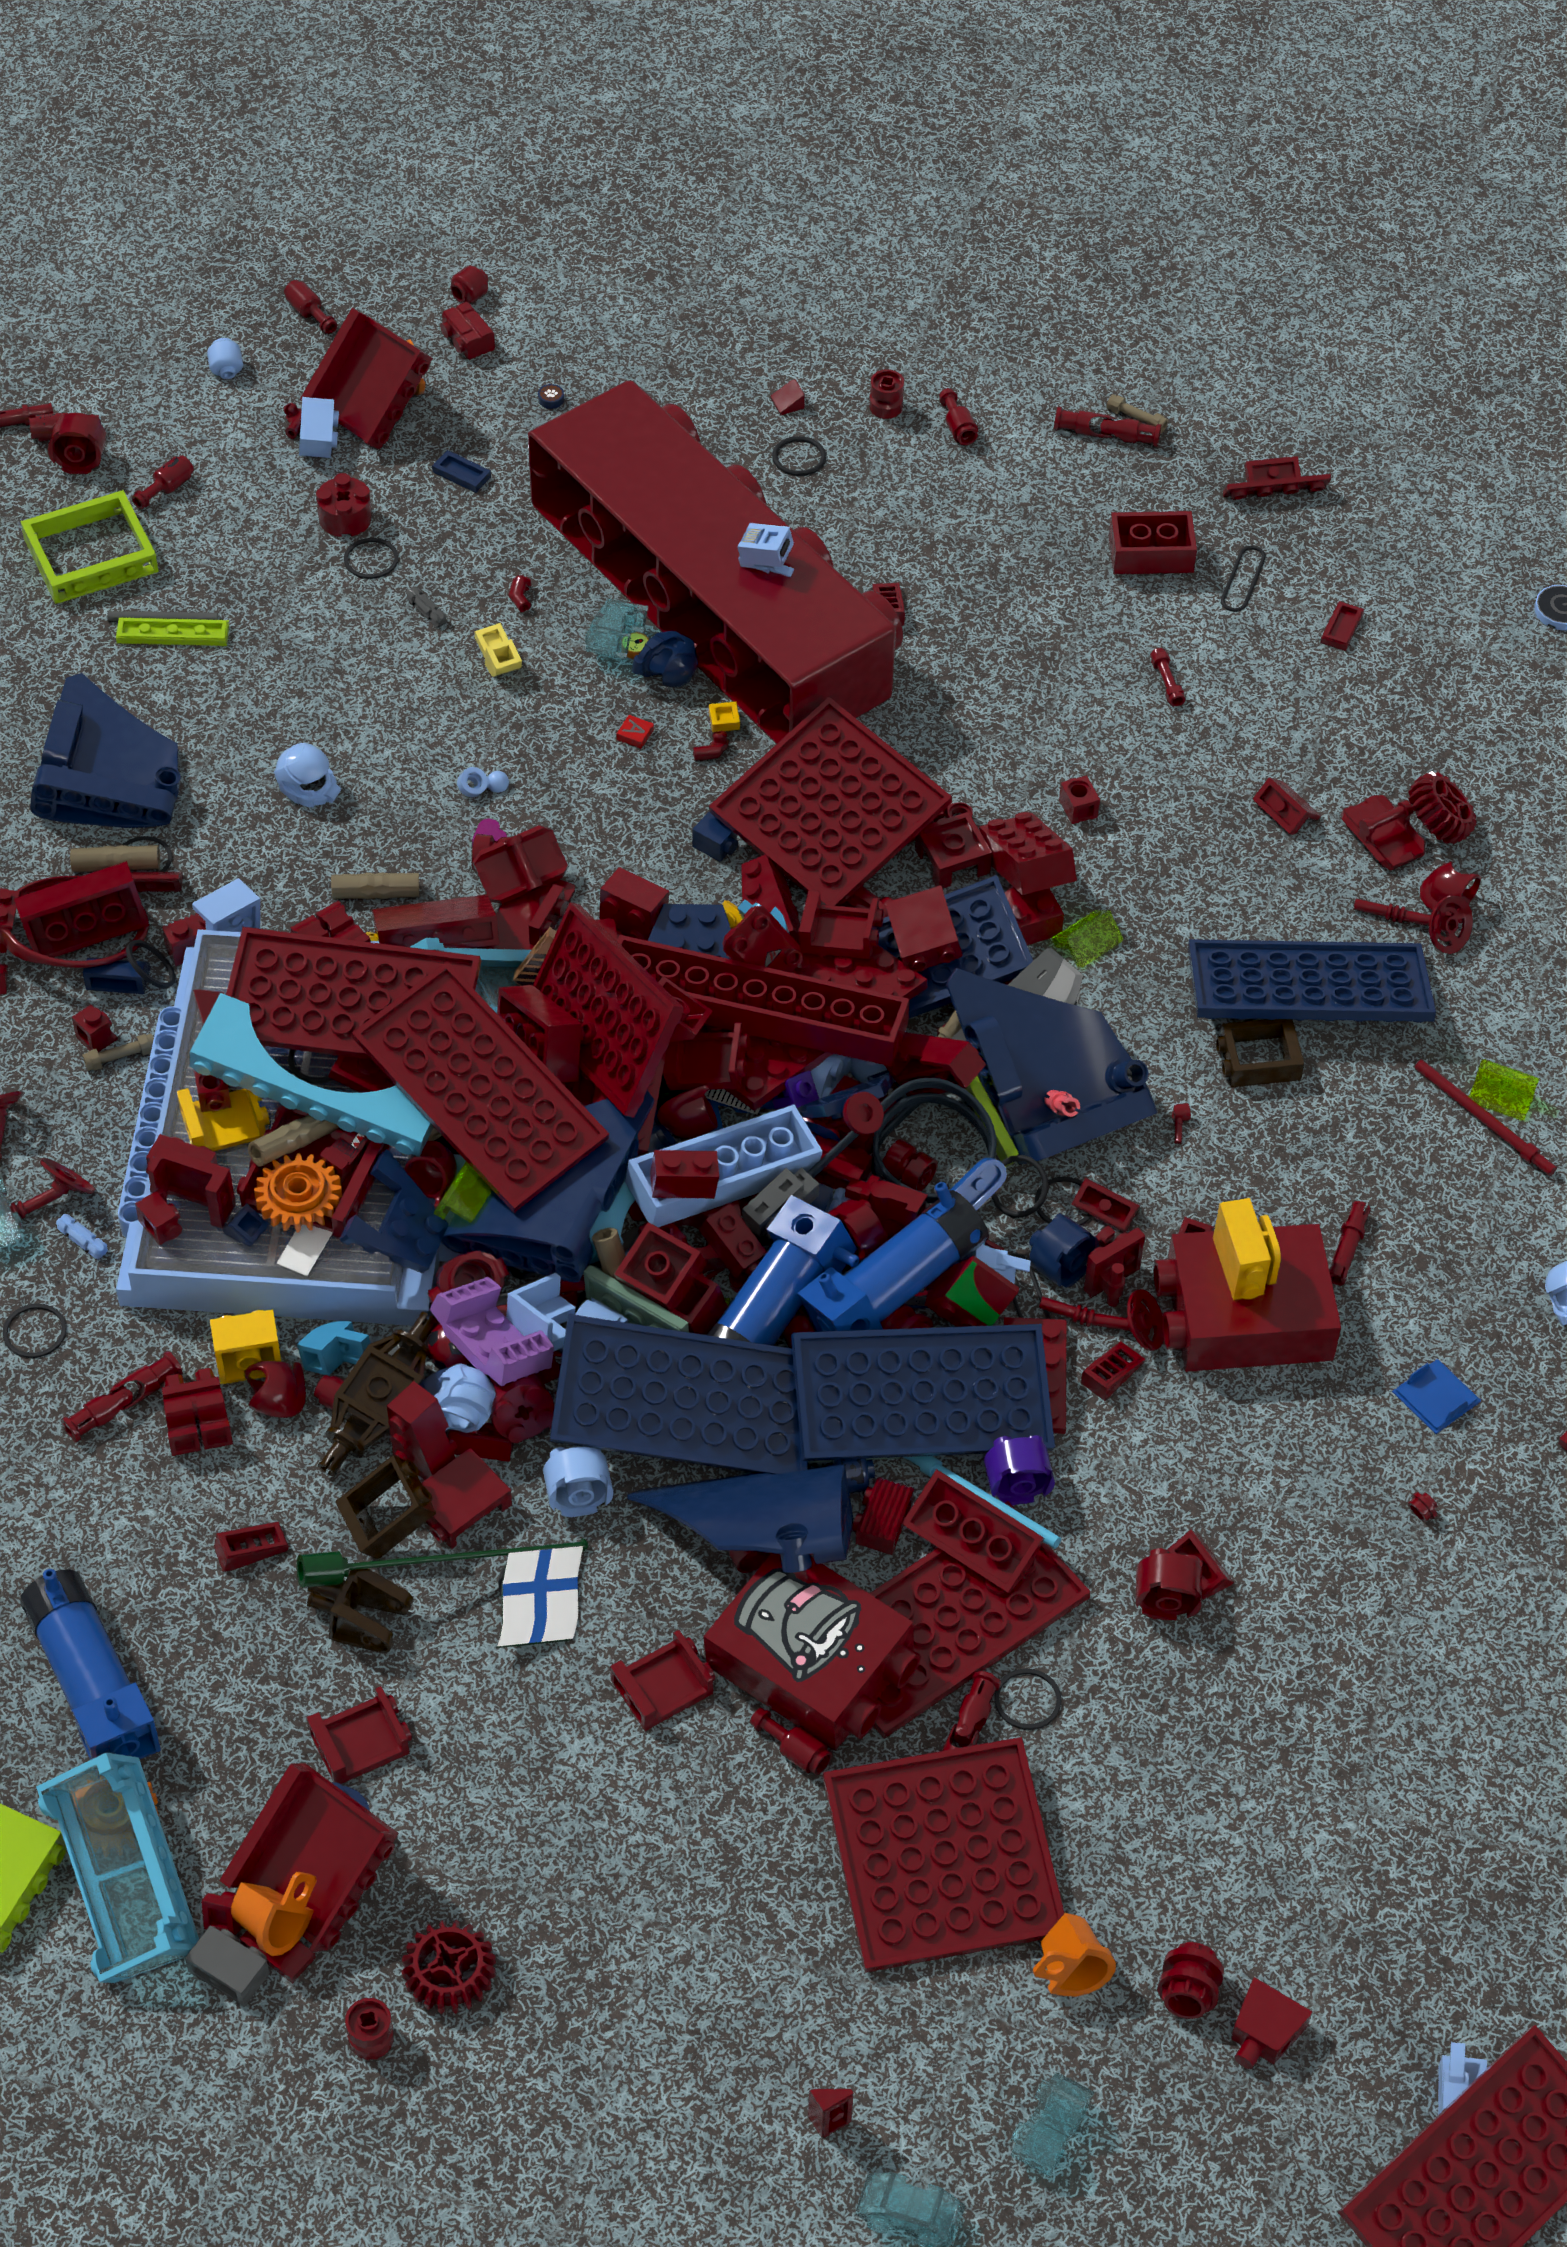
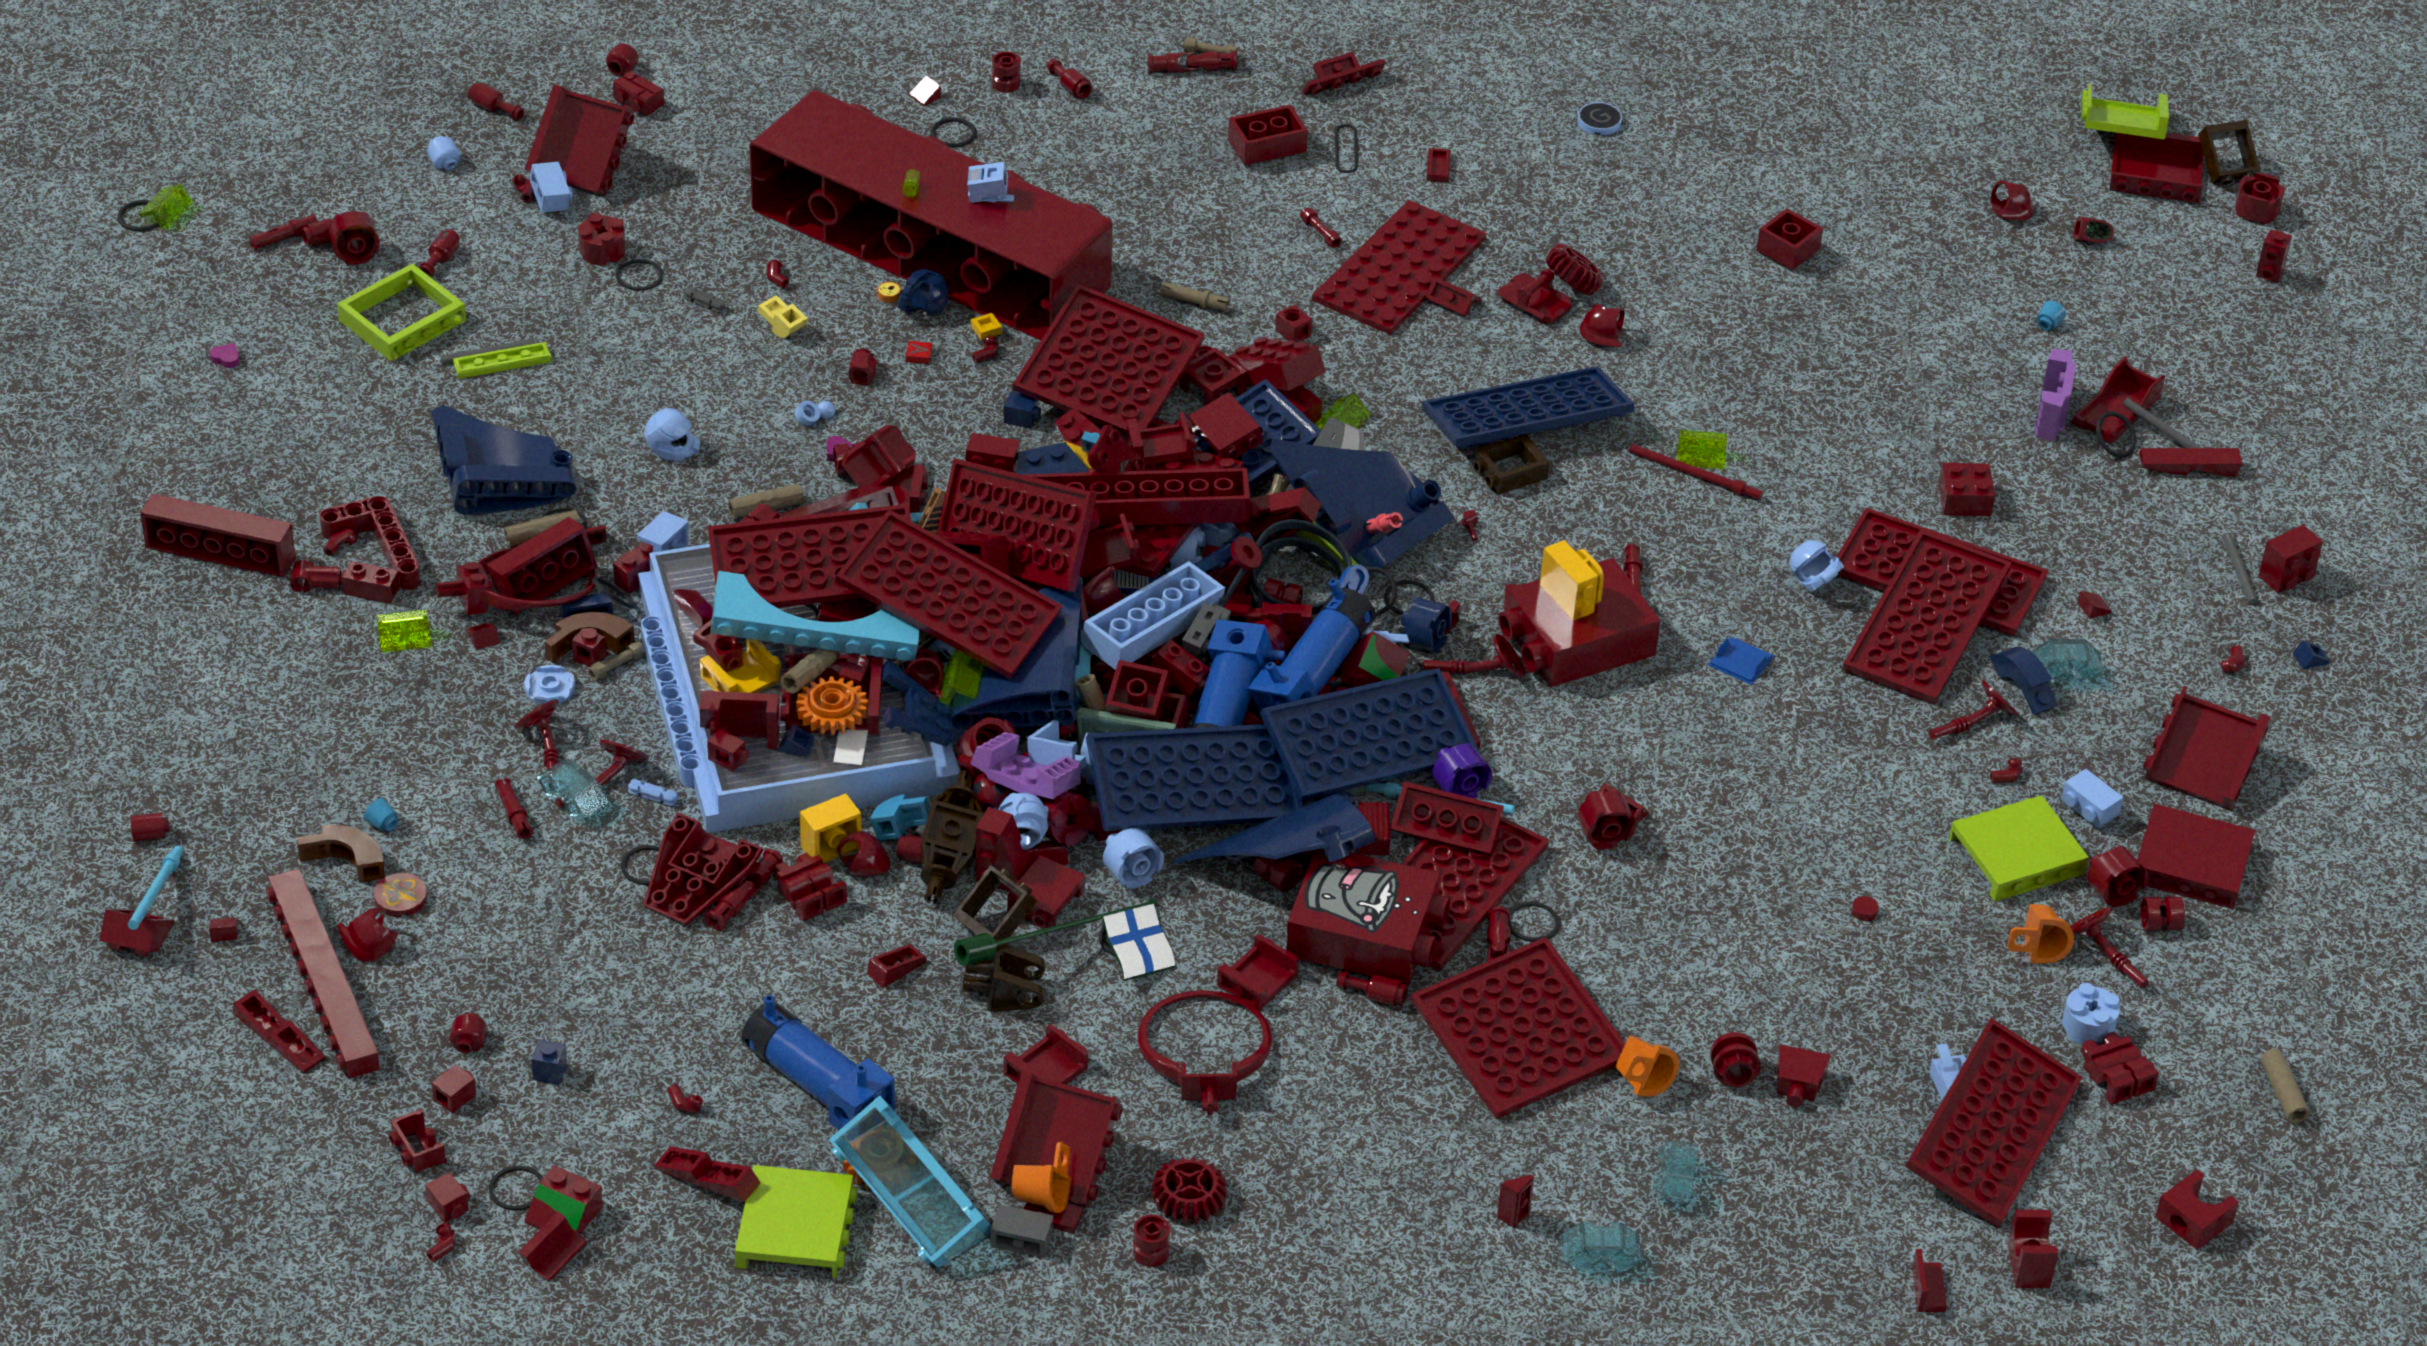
camera: 20 degrees left, 10 degrees down
(36, 1071) = (557, 685): none -> light blue tile
(75, 1356) = (695, 869): none -> dark red wedge
(120, 1005) = (616, 630): none -> reddish brown arch
(217, 1912) = (999, 1195): dark red tile -> none
(461, 471) = (683, 197): dark blue tile -> none
(539, 1827) = (1205, 1086): none -> dark red brick
(551, 396) = (729, 128): tile -> none
(560, 736) = (862, 367): none -> dark red rock
(613, 626) = (870, 280): clear light blue brick -> none
(678, 530) = (910, 186): none -> clear neon green pin
(684, 1174) = (1135, 618): dark red brick -> none
(798, 1092) = (1180, 556): dark purple bracket -> none
(989, 739) = (1205, 298): none -> dark tan pin
(1104, 1388) = (1495, 698): dark red slope -> none
(1105, 1205) = (1441, 590): dark red slope -> none
(1112, 1264) = (1469, 625): dark red plate -> none
(1232, 750) = (1397, 266): none -> dark red plate
(1423, 1506) = (1764, 730): dark red plate -> none
(1436, 924) = (1606, 348): dark red dish -> none
(1449, 1799) = (1865, 908): none -> dark red tile

